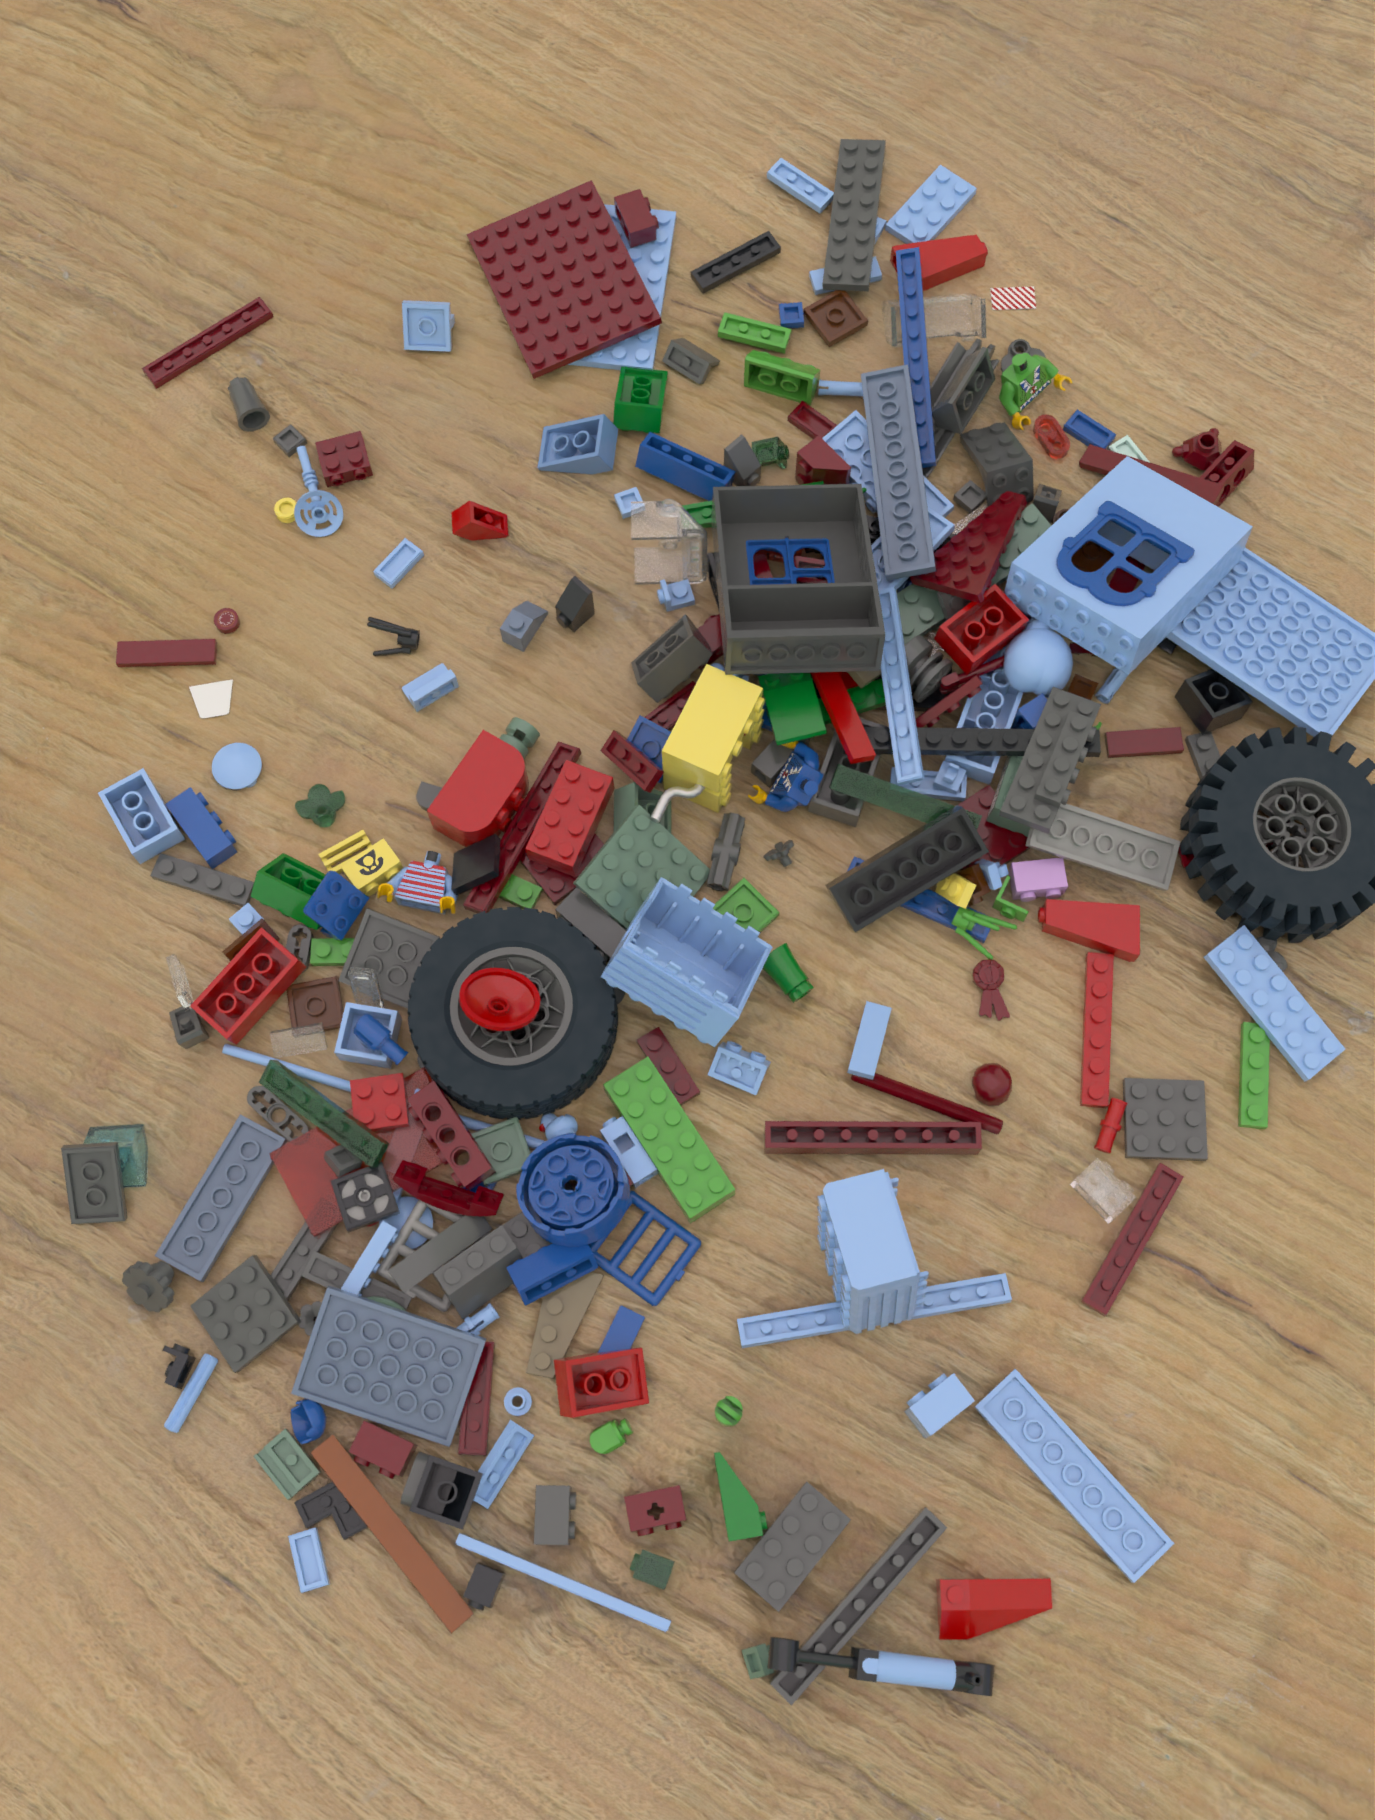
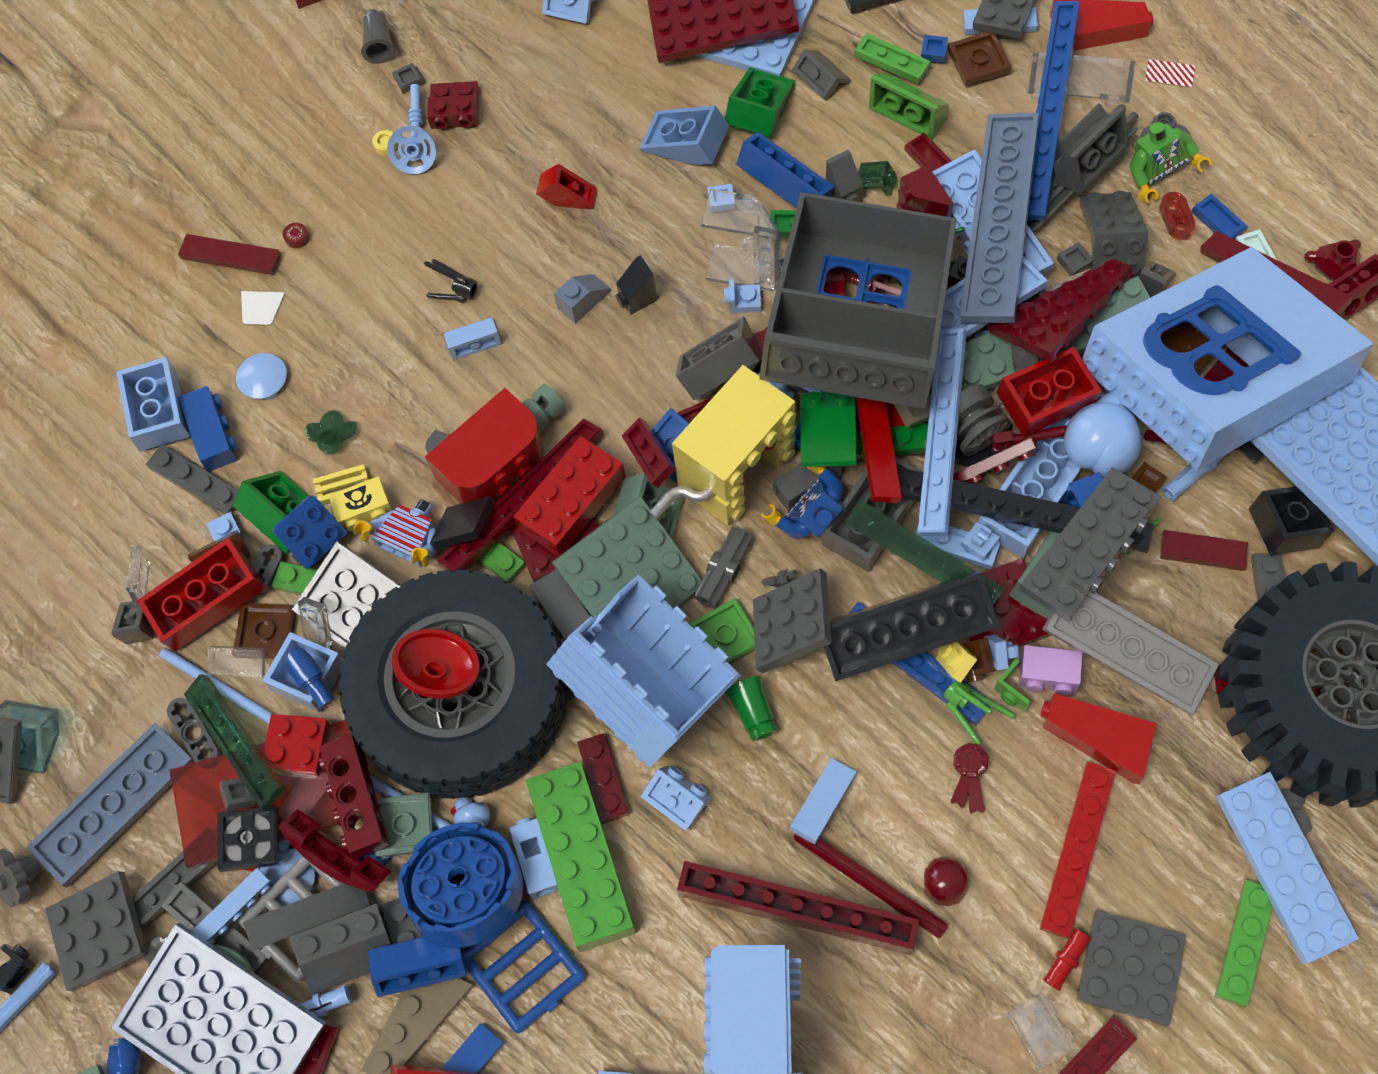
camera: 20 degrees right, 5 degrees down
(398, 563) = (477, 213): light blue tile -> none
(803, 887) = (791, 621): none -> dark grey plate
(841, 388) = (964, 127): light blue pin -> none

